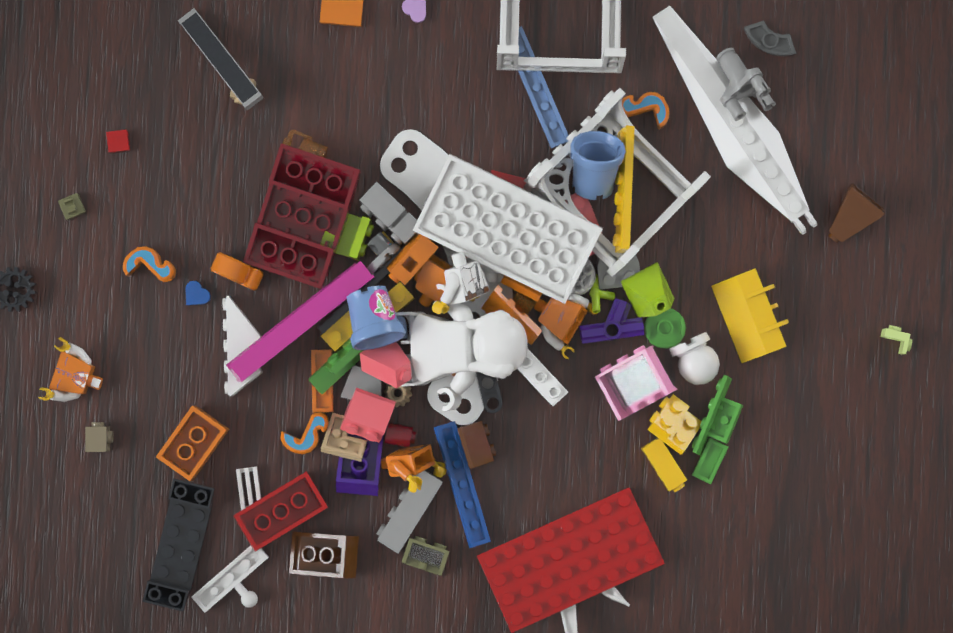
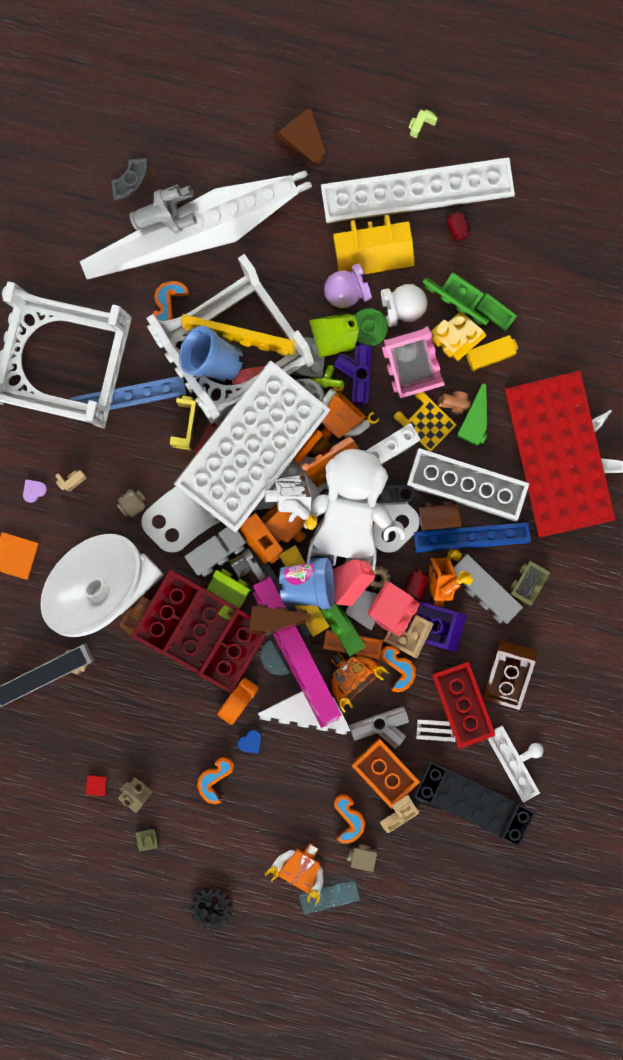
camera: 85 degrees left, 0 degrees up
(50, 413) = (330, 897): none -> clear light blue tile
(116, 183) = (134, 794): none -> dark tan brick
(139, 418) = (352, 816): none -> orange animal
(156, 471) = (404, 811): none -> tan tile
(237, 437) = (387, 731): none -> light grey piece
(287, 299) = (272, 661): none -> clear light blue tile
(287, 387) = (352, 677): none -> torso
(325, 286) = (270, 621): none -> reddish brown slope
(327, 95) = (95, 585): none -> white dish
(423, 114) = (131, 503): none -> dark tan head
(435, 49) = (73, 481): none -> tan bracket
(498, 160) = (182, 443): none -> light yellow panel
(517, 467) = (467, 484): none -> white brick
(575, 412) = (428, 422): none -> yellow flag
(585, 462) = (475, 422): none -> bright green slope
(603, 439) = (458, 402): none -> nougat plate
(700, 293) = (345, 288): none -> lavender tile
(793, 401) = (458, 226): none -> dark red brick
(823, 349) = (417, 190): none -> white plate

